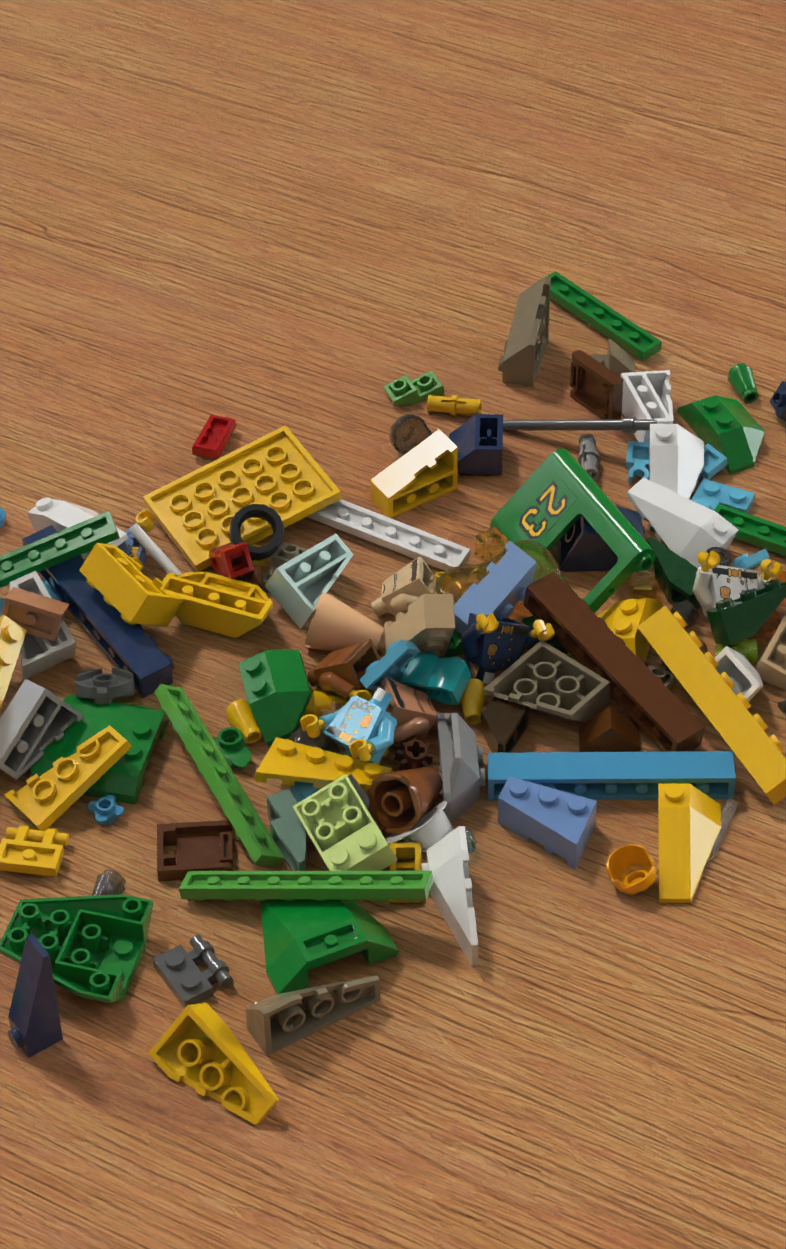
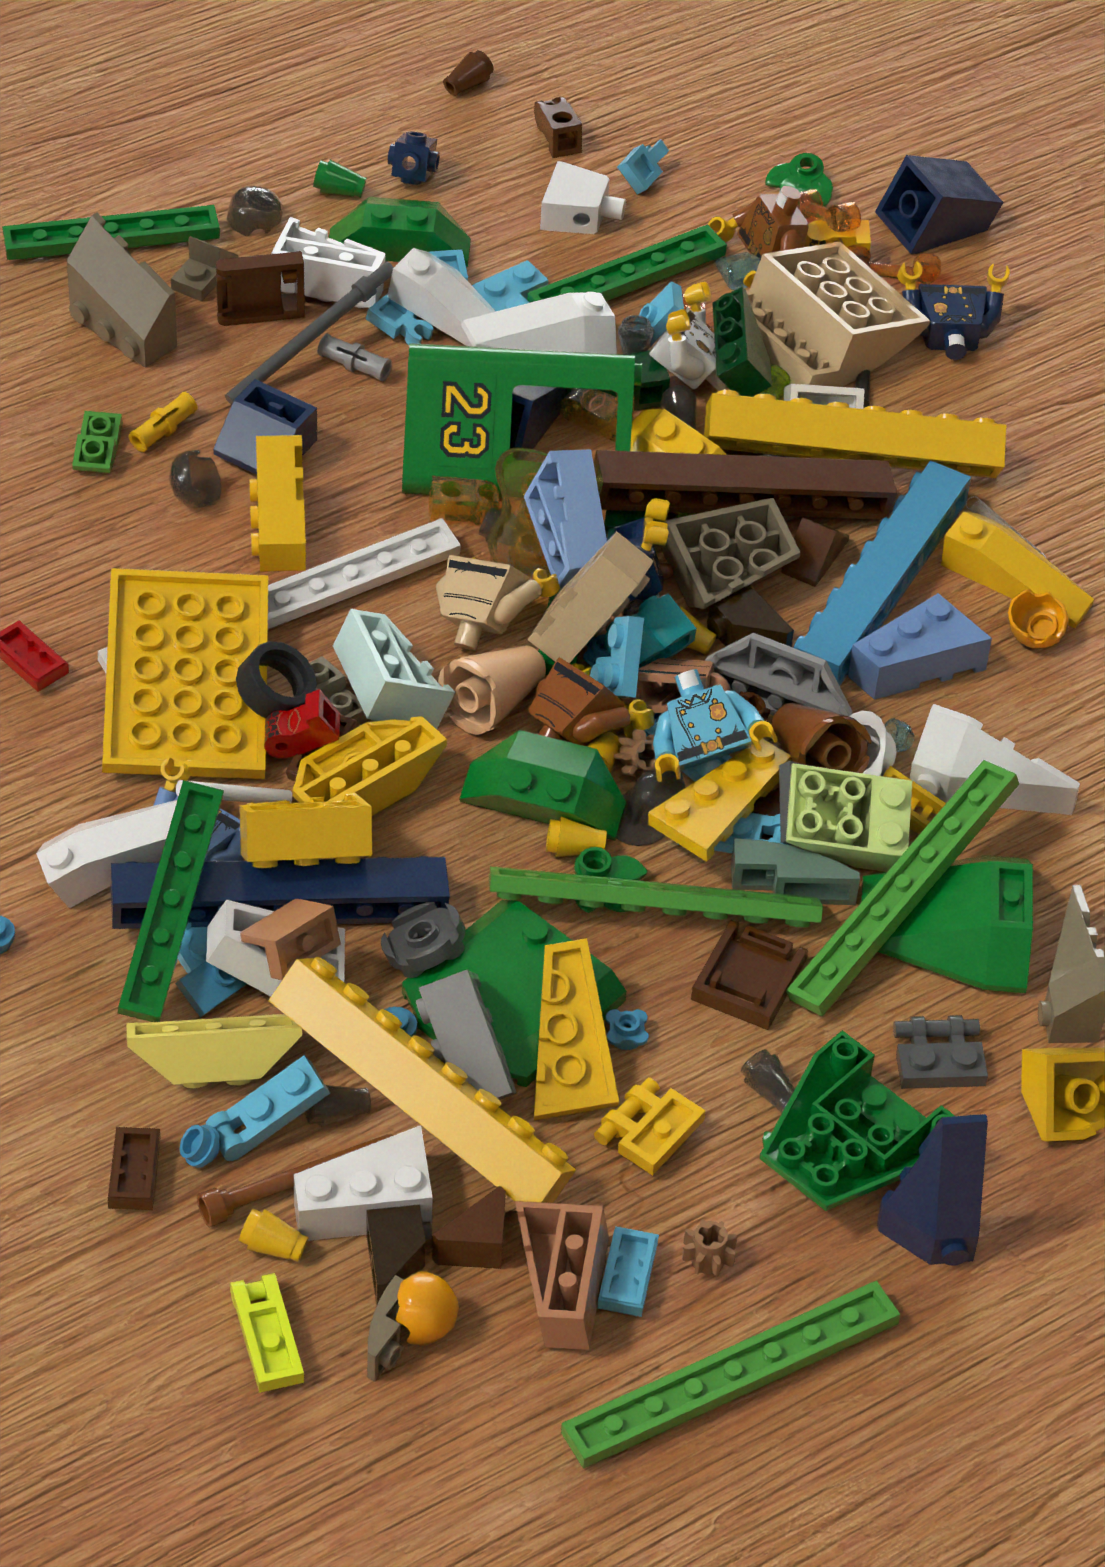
camera: 65 degrees left, 5 degrees up
(681, 361) = (254, 209): none -> clear smoke hair

